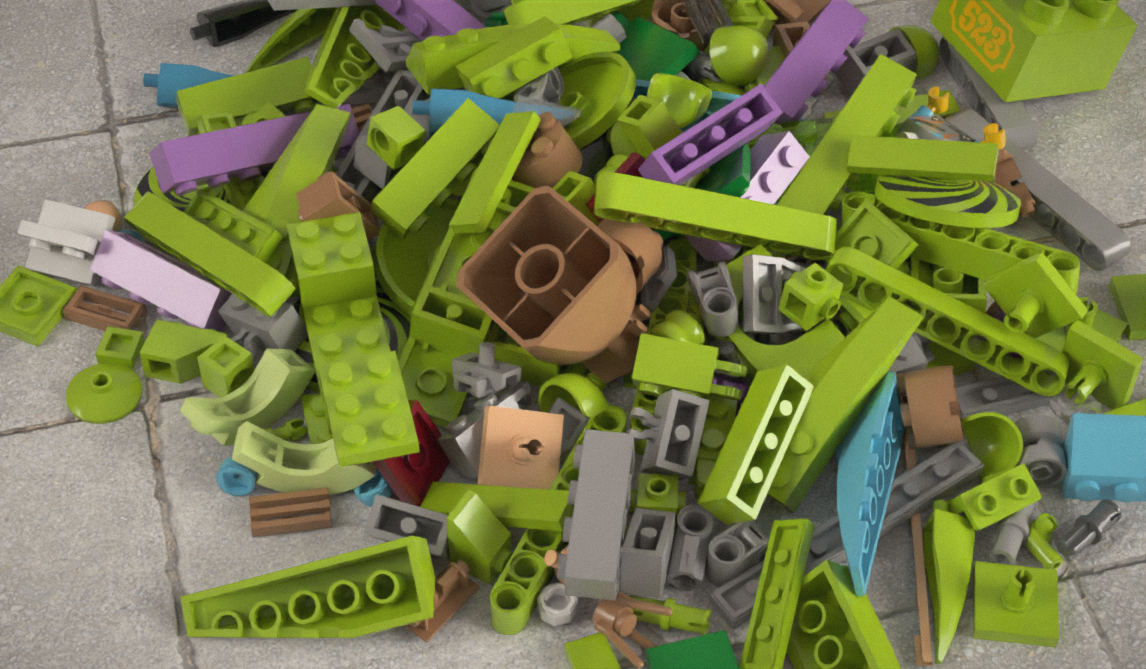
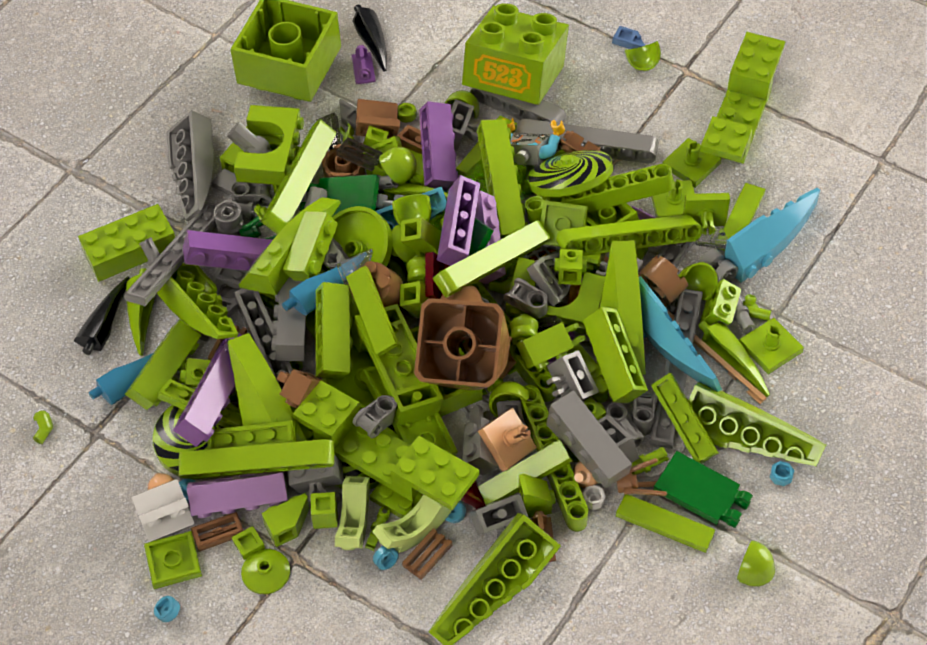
camera: 40 degrees left, 5 degrees up
(70, 79) = (45, 426): none -> lime arm
(384, 301) = (376, 415): none -> light grey piece
(386, 46) = (219, 282): light grey wing -> none
(395, 137) = (297, 328): lime brick -> none
(482, 373) = (454, 415): light grey piece -> none
(923, 158) = (550, 161): lime tile -> none
(1034, 297) = (658, 196): lime tile -> none
(1089, 529) = (768, 288): dark grey axle -> none

